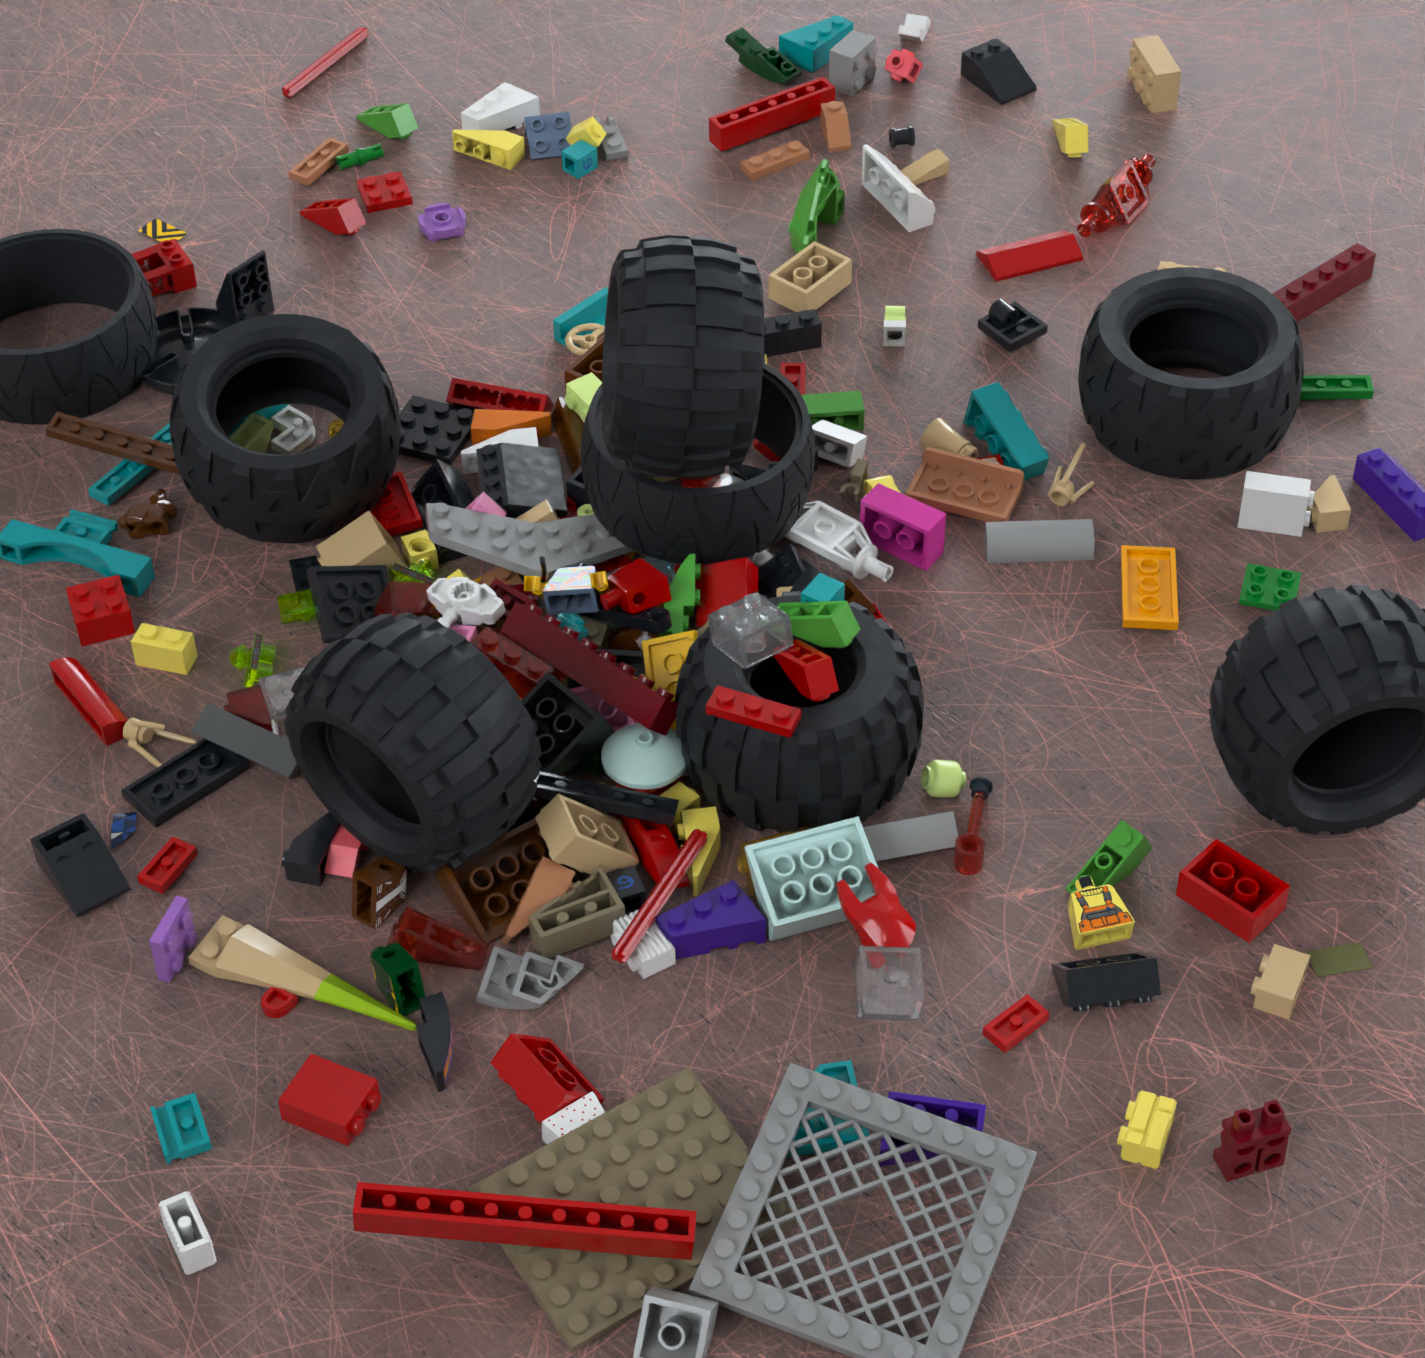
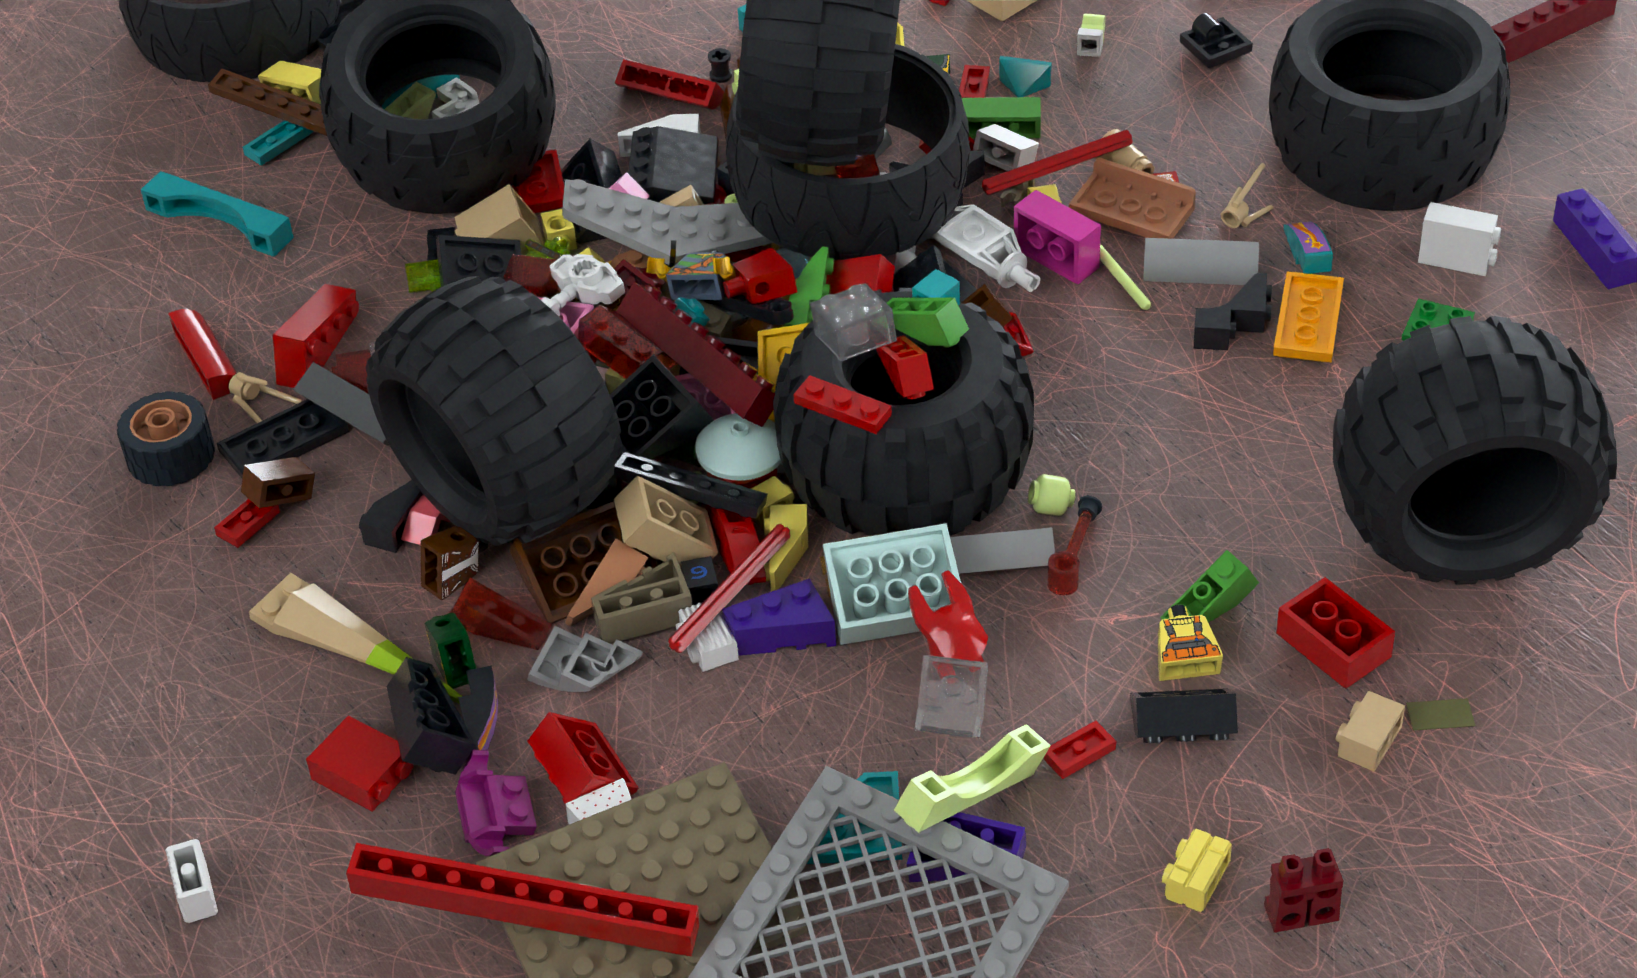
camera: 10 degrees right, 0 degrees up
(71, 782) = (166, 438): none -> black wheel
(79, 864) = (159, 511): black slope -> none
(87, 526) = (235, 184): teal plate -> none
(100, 610) = (230, 266): red brick -> none
(122, 827) = (211, 480): sticker -> none
(134, 418) = (294, 79): none -> light yellow brick
(149, 517) = (297, 179): reddish brown animal -> none
(164, 648) = (277, 303): light yellow brick -> none
(173, 939) = (234, 591): medium lavender plate -> none
(181, 1128) = (208, 778): teal plate -> none
(193, 825) = (277, 482): none -> reddish brown brick
(197, 673) = (313, 332): none -> red wedge
(249, 659) = (361, 322): clear neon green hips -> none
(278, 1002) = (330, 663): red tile -> none
(390, 1050) = (427, 719): none -> black wedge
(434, 429) = (598, 111): black plate -> none
(467, 1130) = (492, 805): none -> magenta plate
(494, 422) = (656, 106): orange slope -> none
(545, 377) = (719, 62): none -> black bush
(792, 333) = (973, 36): black brick -> none
(838, 369) = (1024, 75): none -> teal slope
(889, 454) = (1057, 162): none -> red axle
(907, 1082) = (935, 798): none -> yellowish green arch
(971, 564) = (1124, 279): none -> yellowish green bar
(1005, 430) = (1185, 147): teal wedge -> none
(1090, 588) = (1243, 314): none -> black arch
(1137, 519) = (1309, 247): none -> slope
(1330, 507) = (1519, 247): tan slope -> none
(1336, 387) = (1548, 124): green plate -> none

